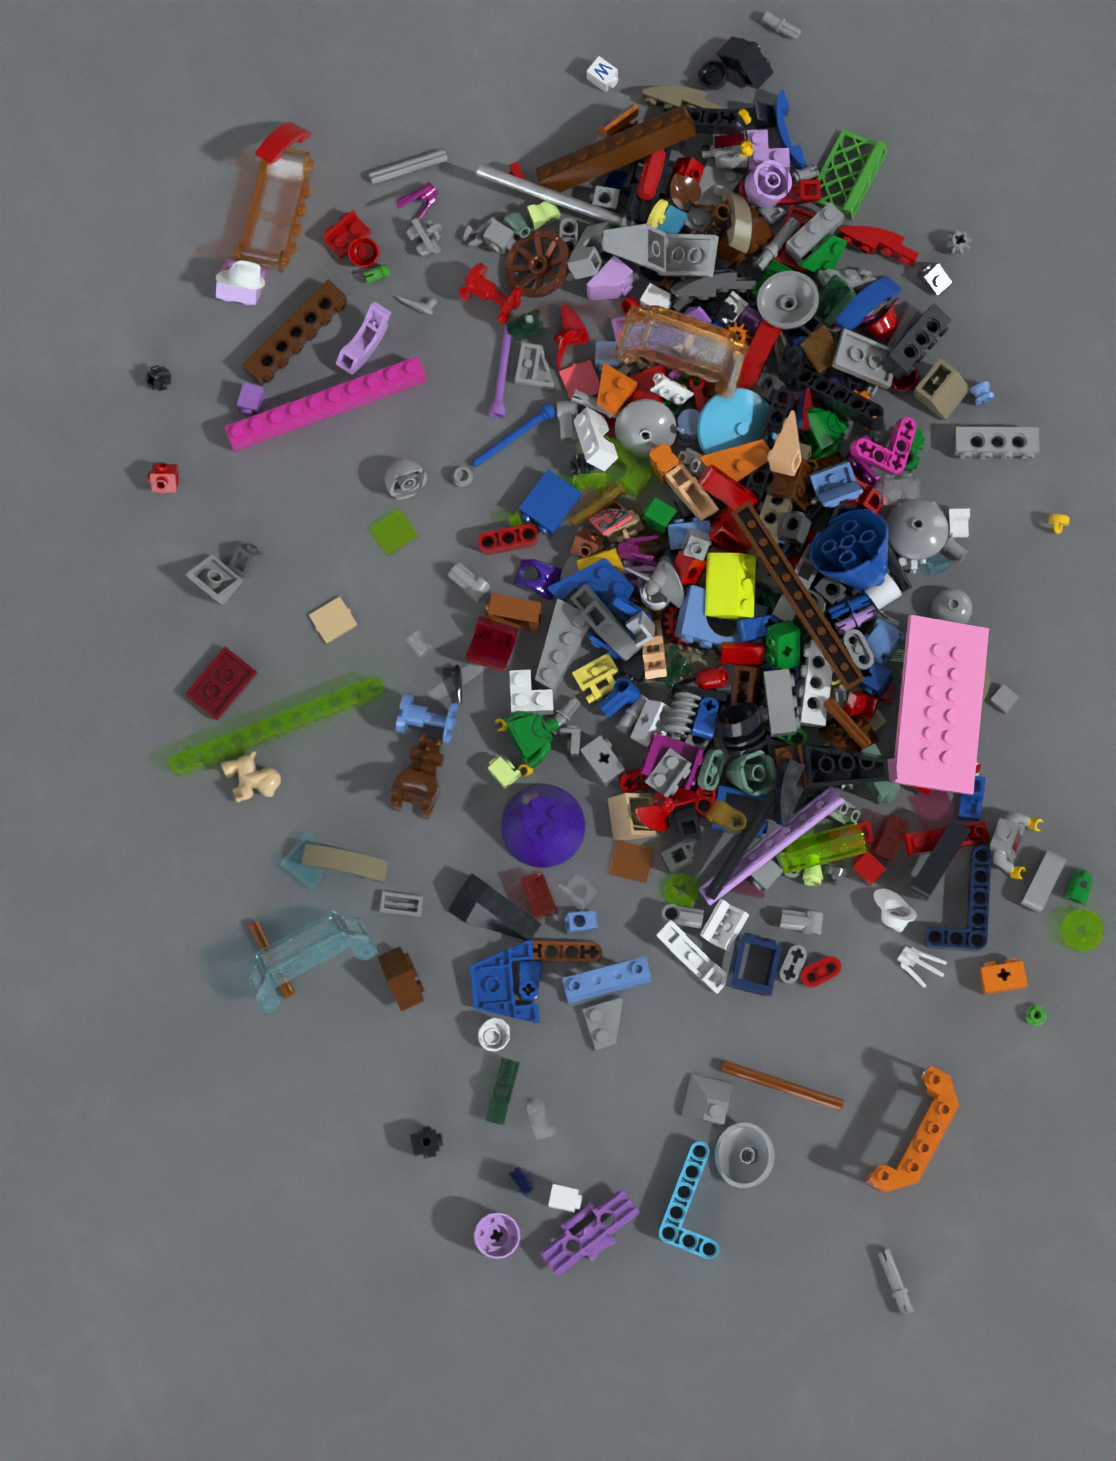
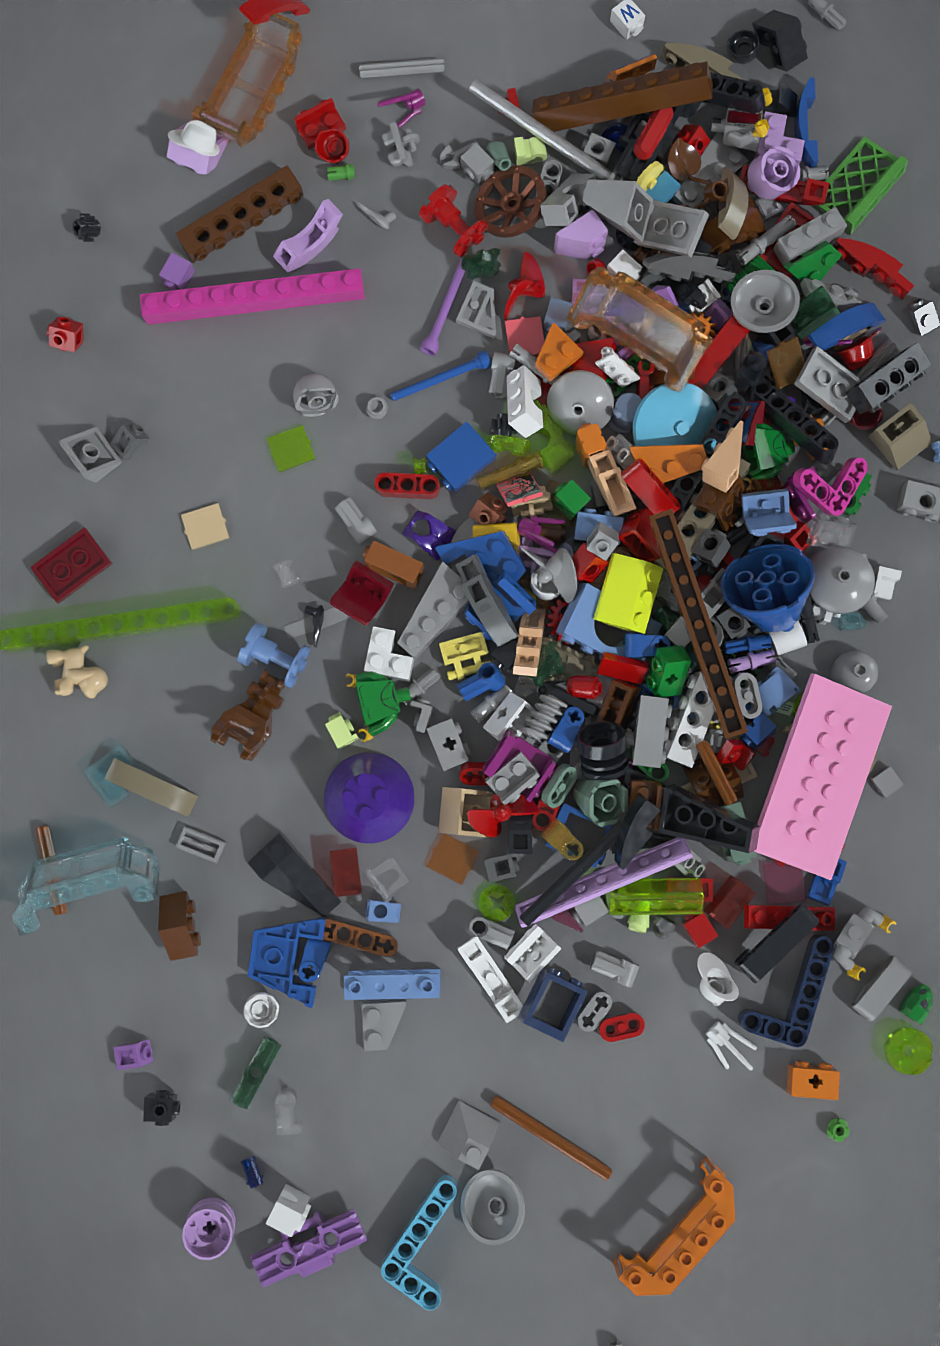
camera: 10 degrees right, 5 degrees up
(388, 1104) = (133, 1055): none -> medium lavender bracket
(641, 628) = (523, 617): light grey panel -> none

